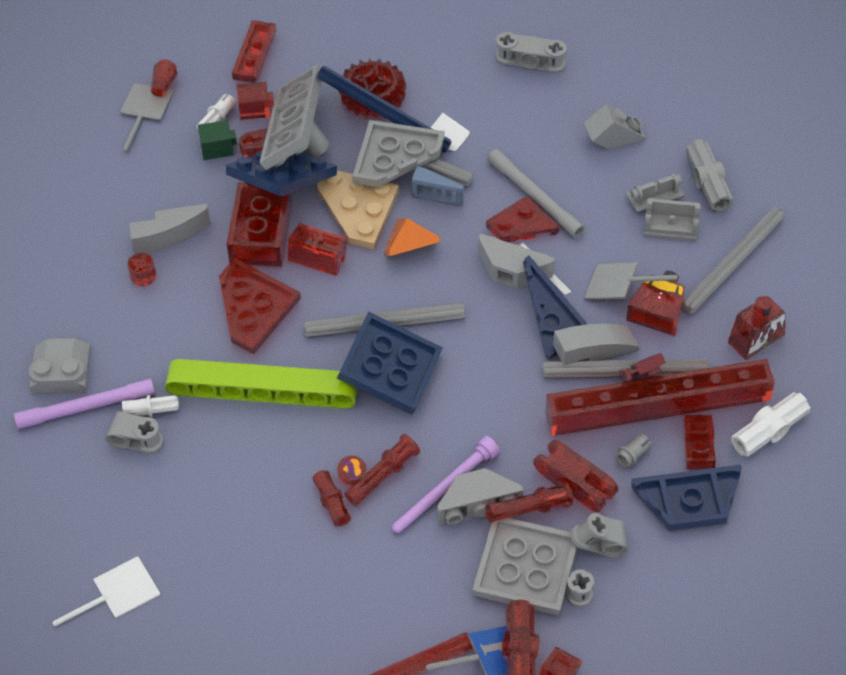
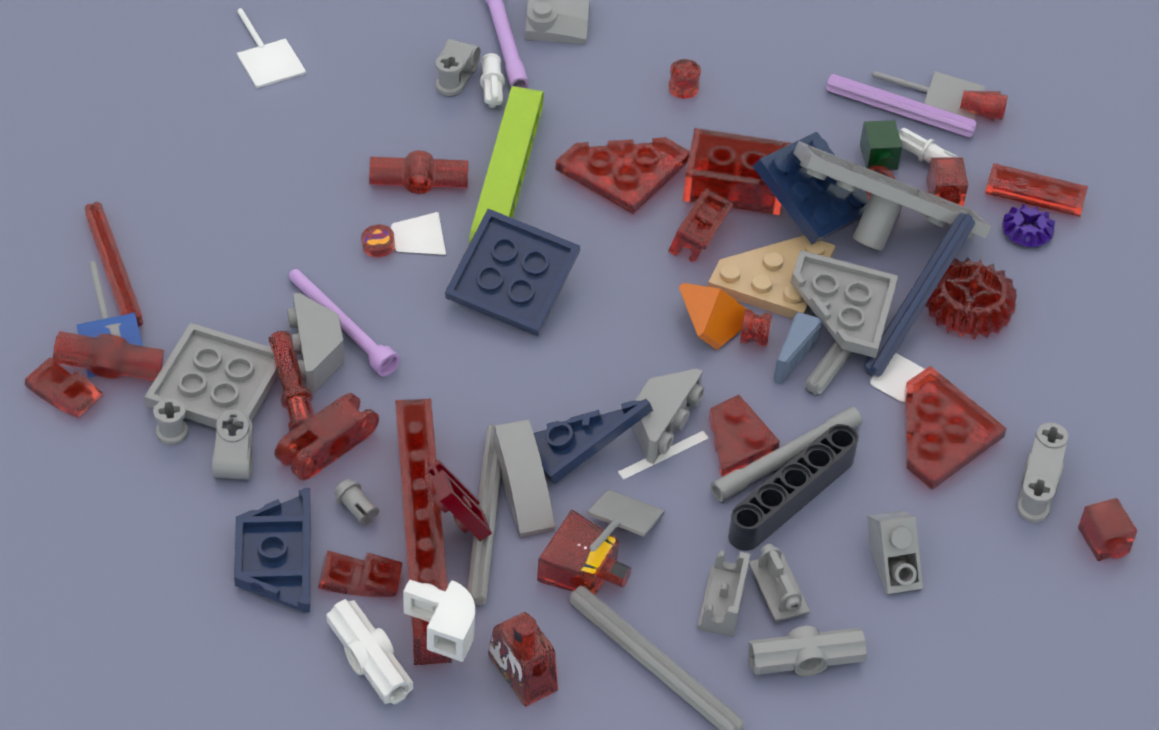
camera: 90 degrees right, 5 degrees down
(162, 132) = (901, 105): none -> lavender axle
(168, 228) = (741, 97): light grey slope -> none
(271, 447) = (418, 172): none -> clear red piece
(289, 66) = (1028, 235): none -> dark purple gear
(331, 498) = (343, 220): clear red pin -> none
(335, 444) = (419, 235): none -> white sticker
(391, 461) = (379, 271): clear red pin -> none
(397, 317) = (591, 288): light grey axle -> none
(420, 210) = (756, 327): none -> clear red wheel
(498, 104) = (944, 428): none -> clear red plate
(570, 185) = (792, 487): none -> black beam
(574, 21) = (1107, 529): none -> clear red brick
(762, 349) = (448, 613): none -> white brick

